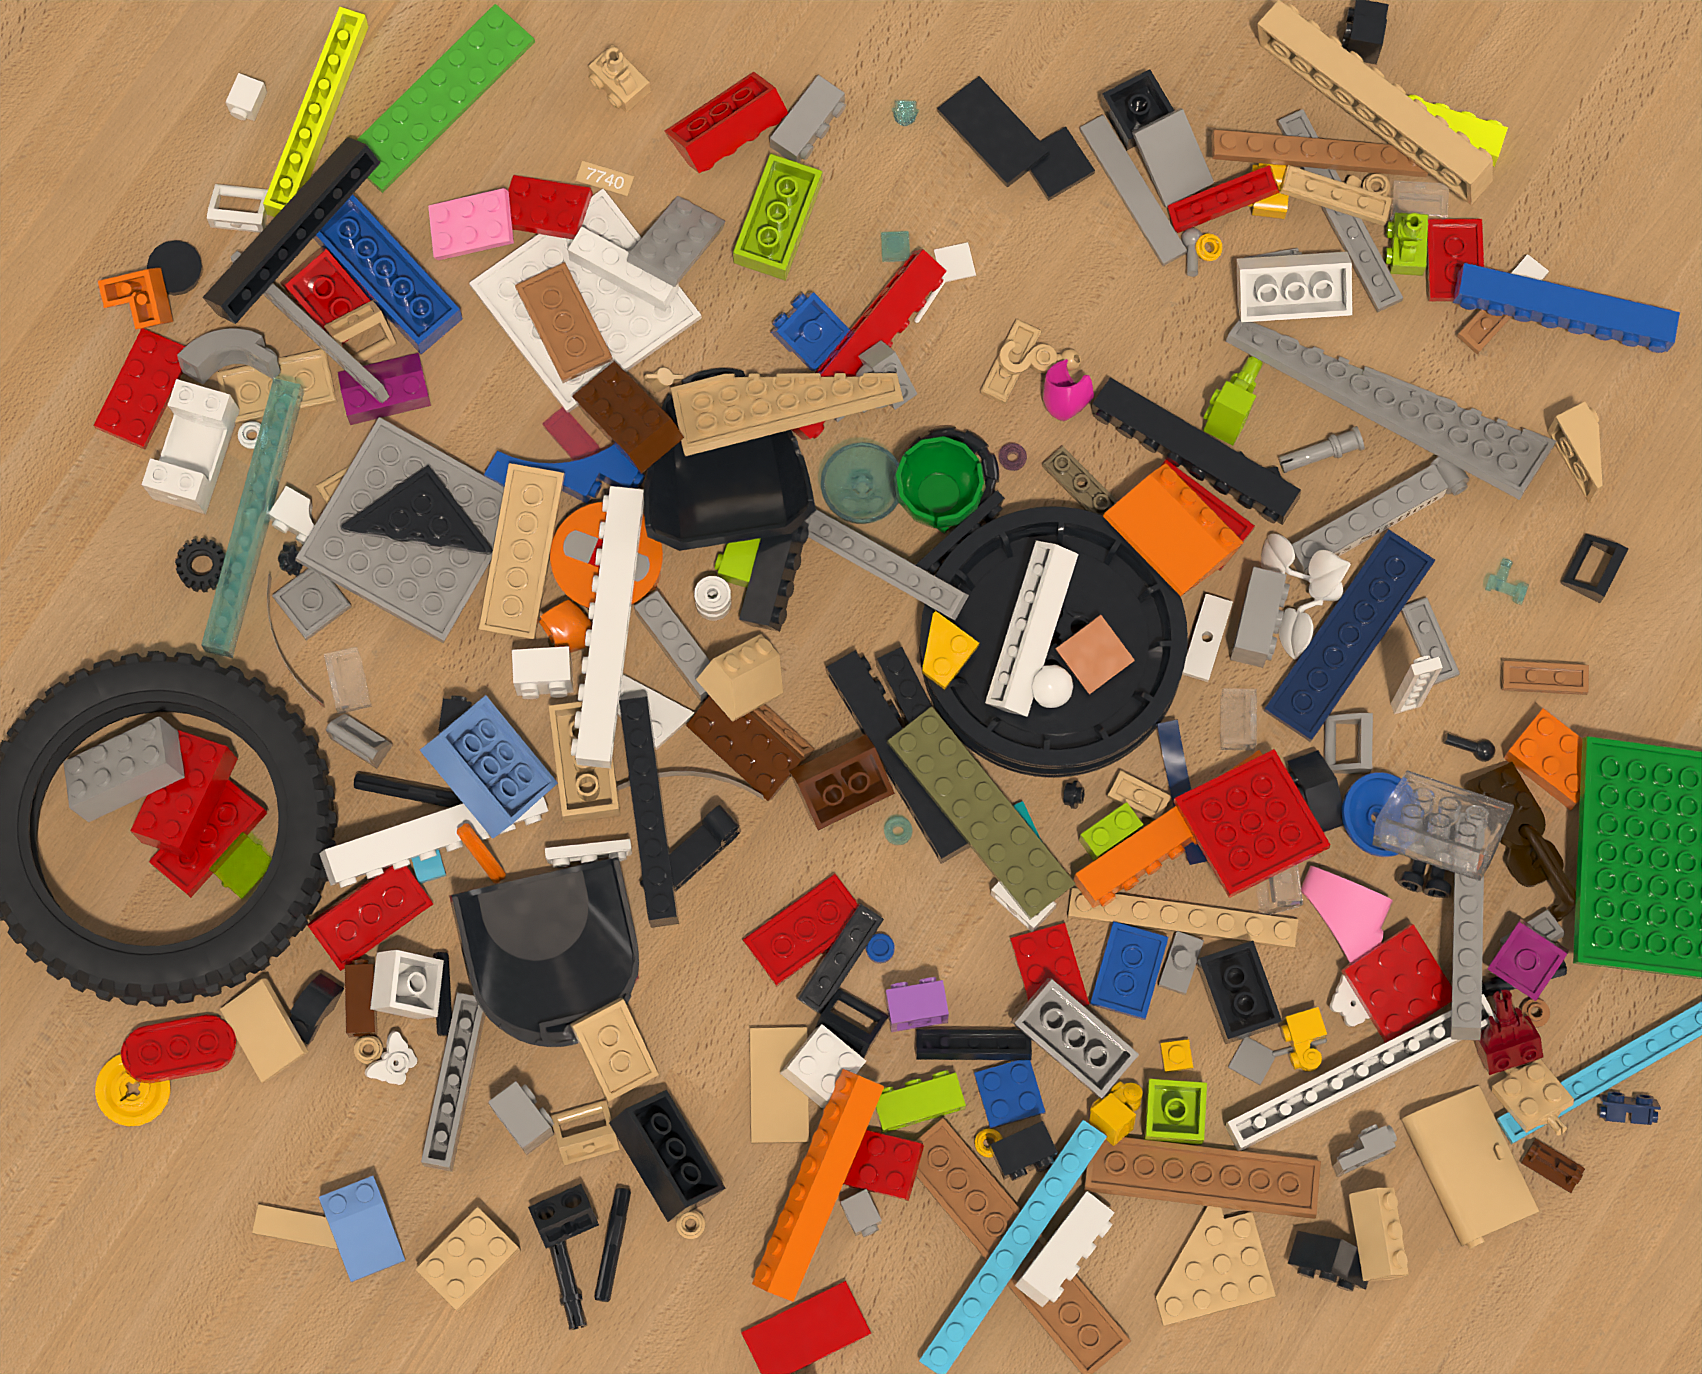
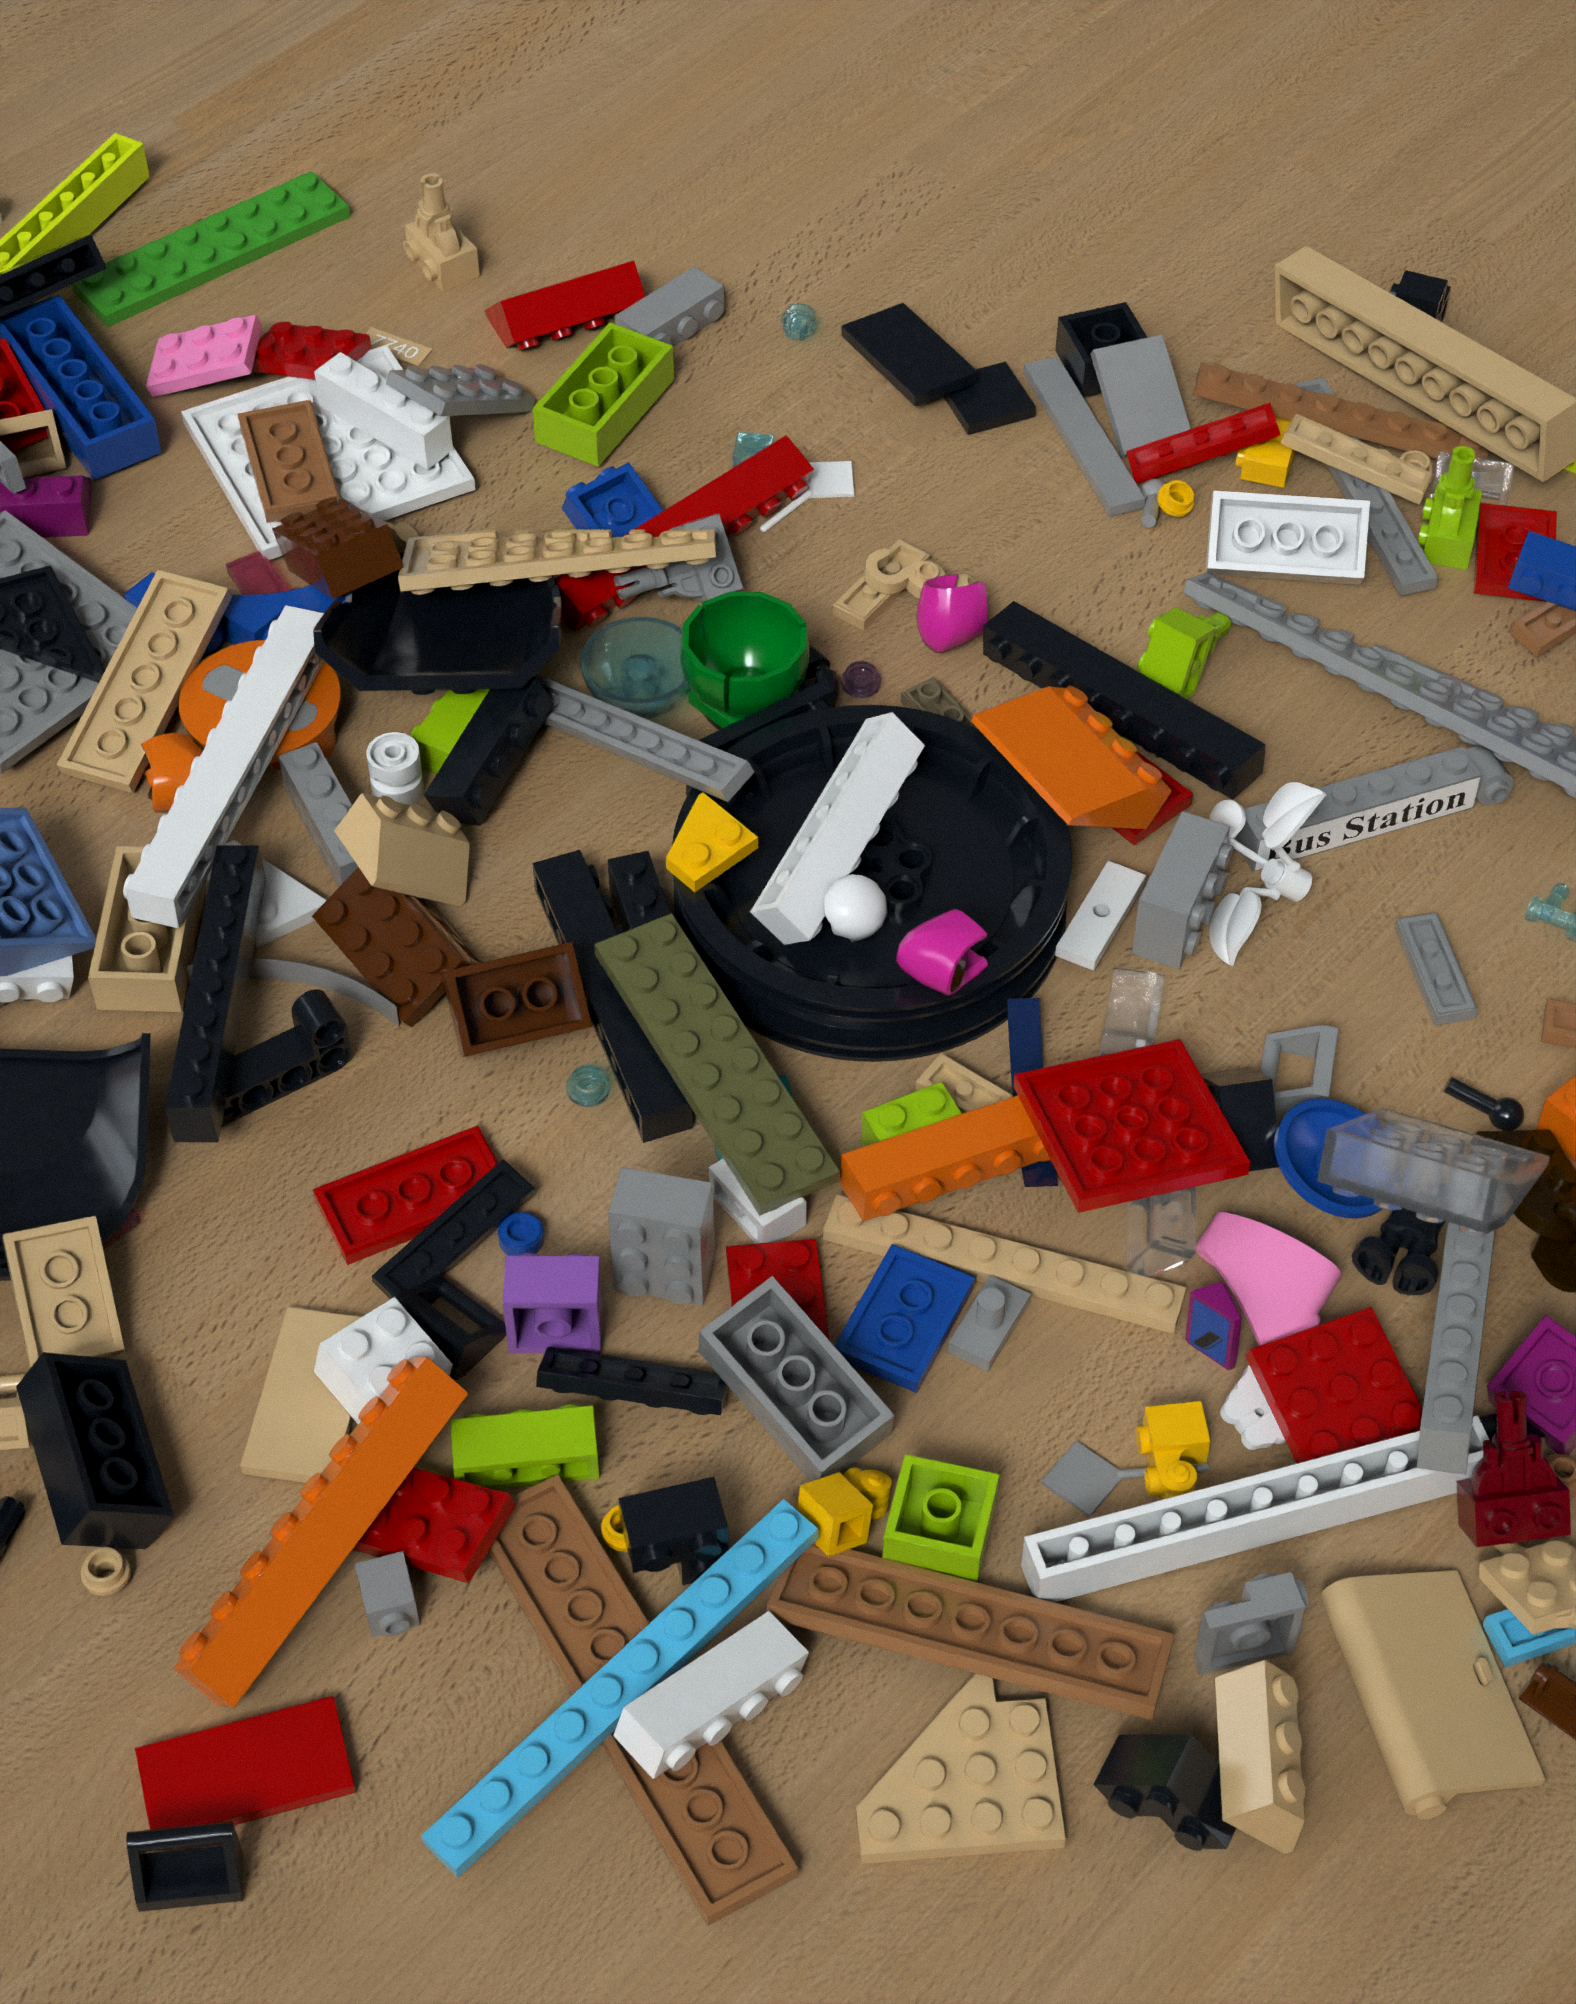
camera: 10 degrees right, 25 degrees down
(542, 672) = (119, 807): white brick -> none
(588, 853) = (100, 1036): white tile -> none
(976, 953) = (662, 1236): none -> light grey brick
(1009, 1093) = (675, 1452): blue plate -> none
(1073, 794) = (864, 1076): black plate -> none
(1094, 654) = (927, 881): nougat tile -> none
(1116, 723) = (940, 952): none -> dark pink piece
(1176, 1056) = (959, 1445): yellow plate -> none
(1239, 992) = (1075, 1366): black brick -> none
(1320, 951) = (1214, 1324): none -> slope
(1334, 446) = (1319, 725): light grey pin -> none
(1349, 635) = (1312, 943): dark blue plate -> none
(1416, 684) = (1410, 959): white plate -> none

